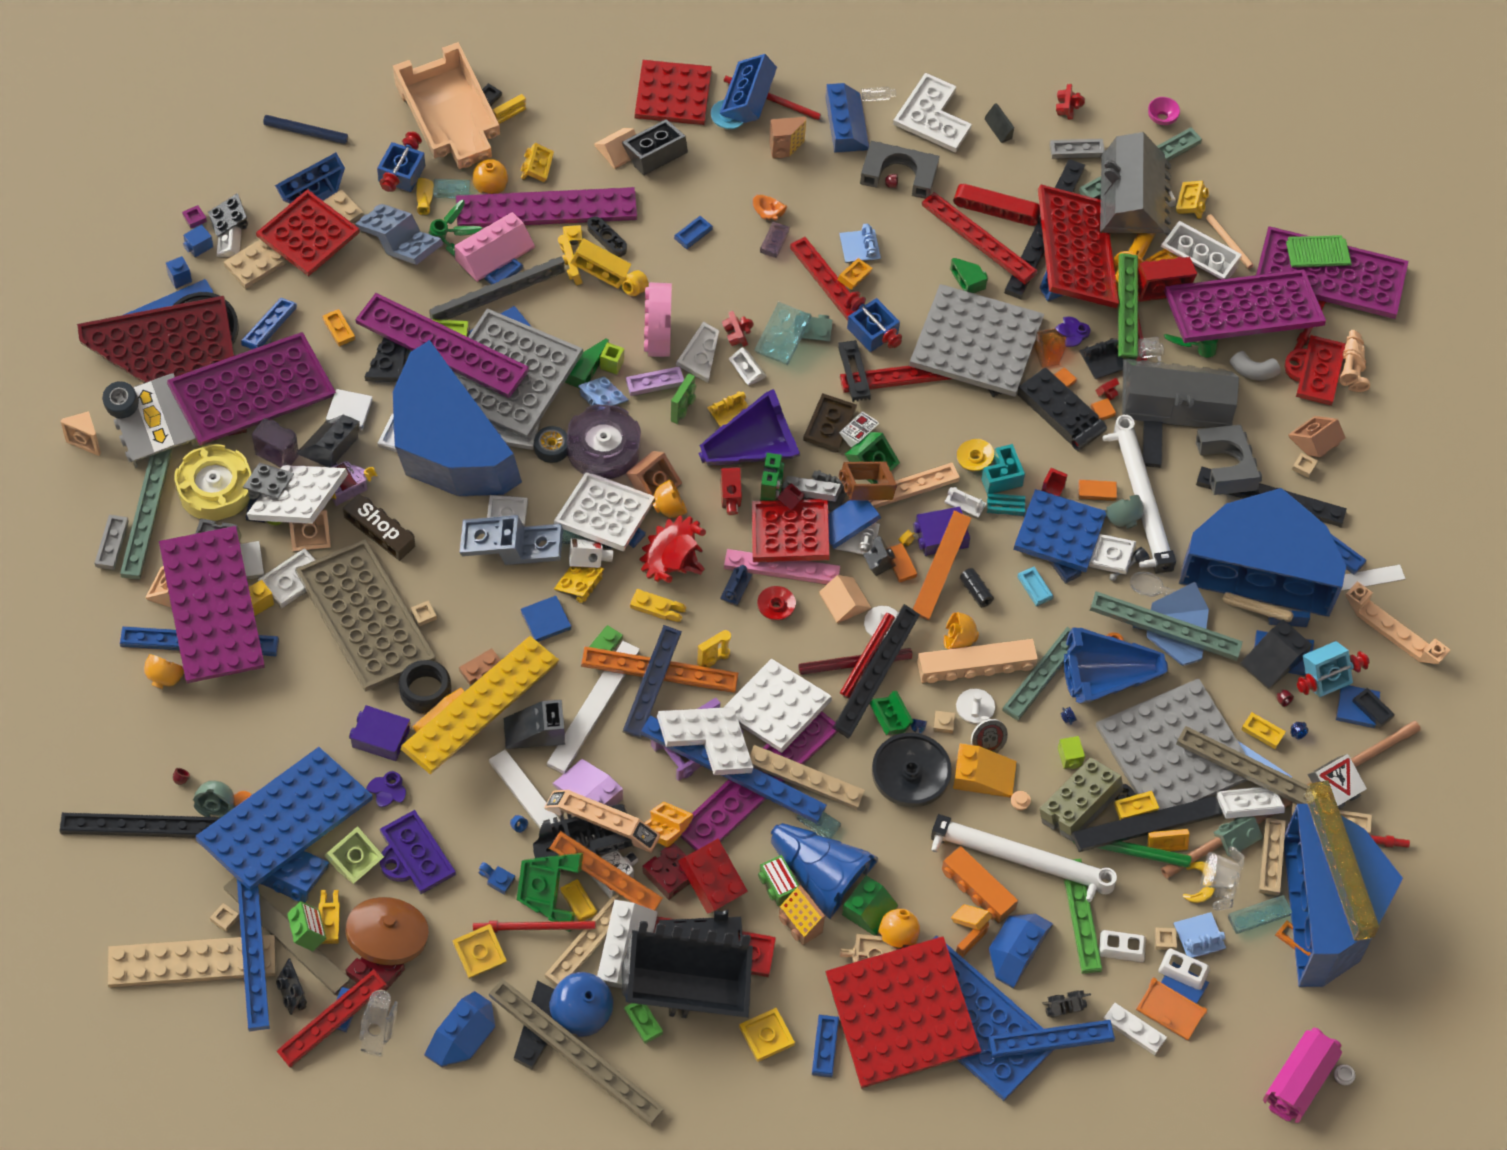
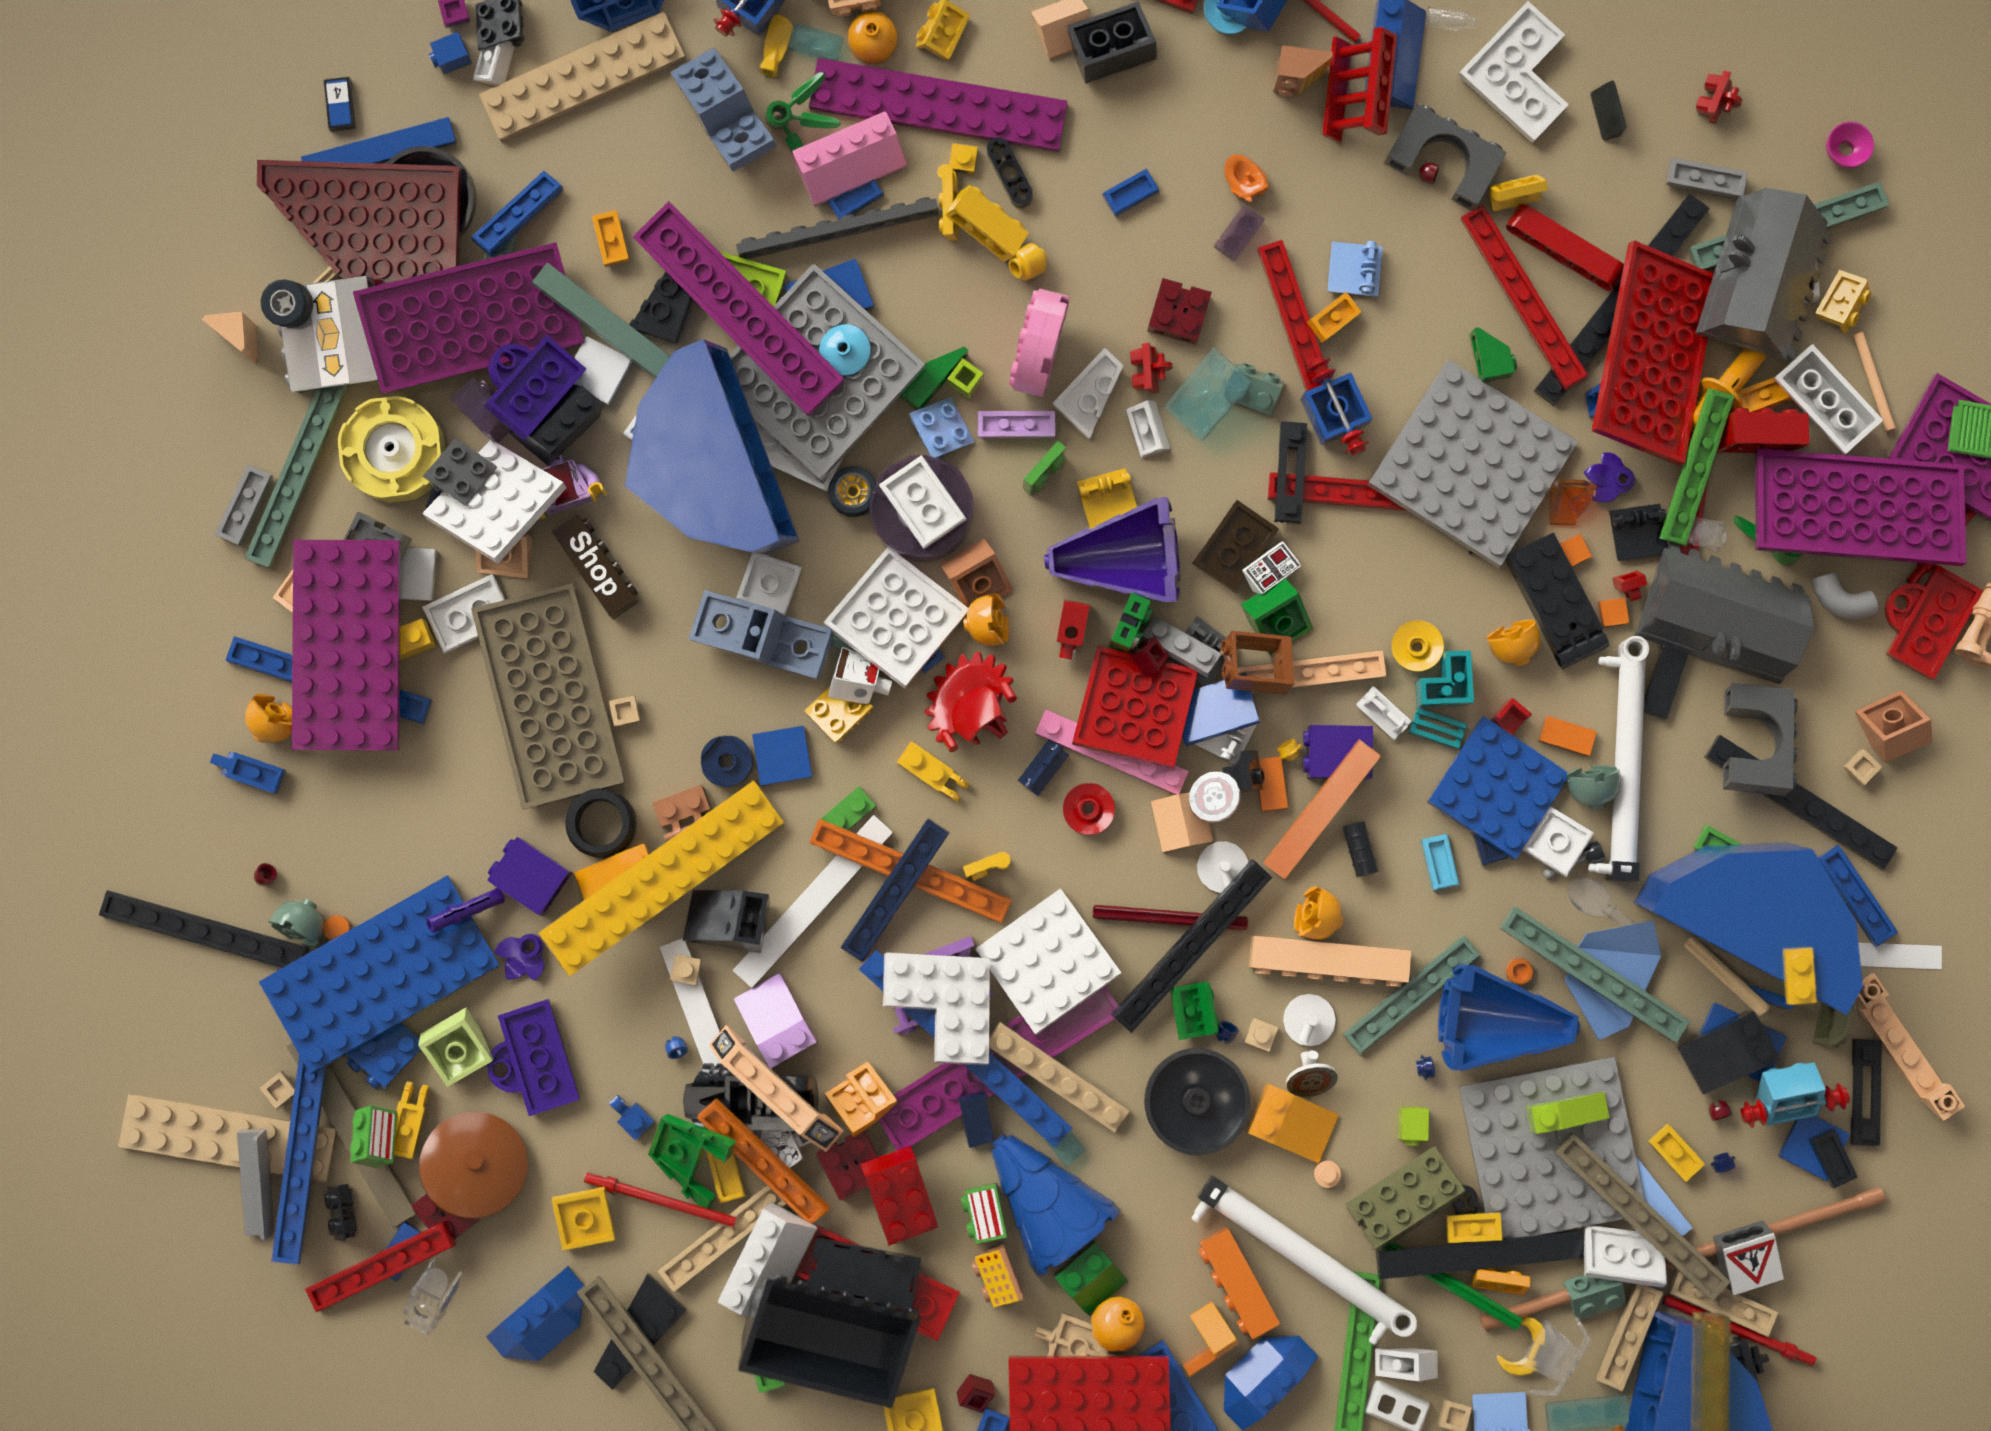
camera: 15 degrees right, 25 degrees up
(125, 287) = (339, 104): none -> tile
(153, 710) = (250, 771): none -> blue hinge
(178, 272) = (413, 99): blue brick -> none
(221, 981) = (255, 1182): none -> light grey panel
(306, 415) = (531, 383): none -> dark purple plate
(307, 232) = (599, 78): red plate -> none
(332, 764) = (455, 914): none -> dark purple pin
(344, 373) = (600, 320): none -> sand green tile
(510, 639) = (726, 746): none -> dark blue plate
(512, 767) = (685, 969): none -> tan plate
(530, 356) = (855, 356): none -> medium azure dish
(581, 1003) = (684, 1312): blue cylinder -> none
(604, 431) = (922, 502): none -> white tile
(748, 292) = (1177, 322): none -> dark red piece
(754, 818) = (976, 1119): none -> dark blue tile
(808, 1006) = (975, 1393): none -> dark red slope
(843, 136) = (1379, 85): none -> red fence
(863, 571) = (1214, 796): none -> shield
(867, 655) = (1186, 919): red axle -> none
(949, 181) = (1516, 192): none -> yellow bracket
(1042, 438) = (1515, 643): none -> light orange cylinder
(1118, 910) = (1406, 1363): none -> white slope
(1175, 715) = (1567, 1112): none -> lime slope
(1301, 568) = (1799, 975): none -> yellow plate
(1342, 619) = (1832, 1026): none -> olive slope
(1388, 688) = (1866, 1053): none -> black container

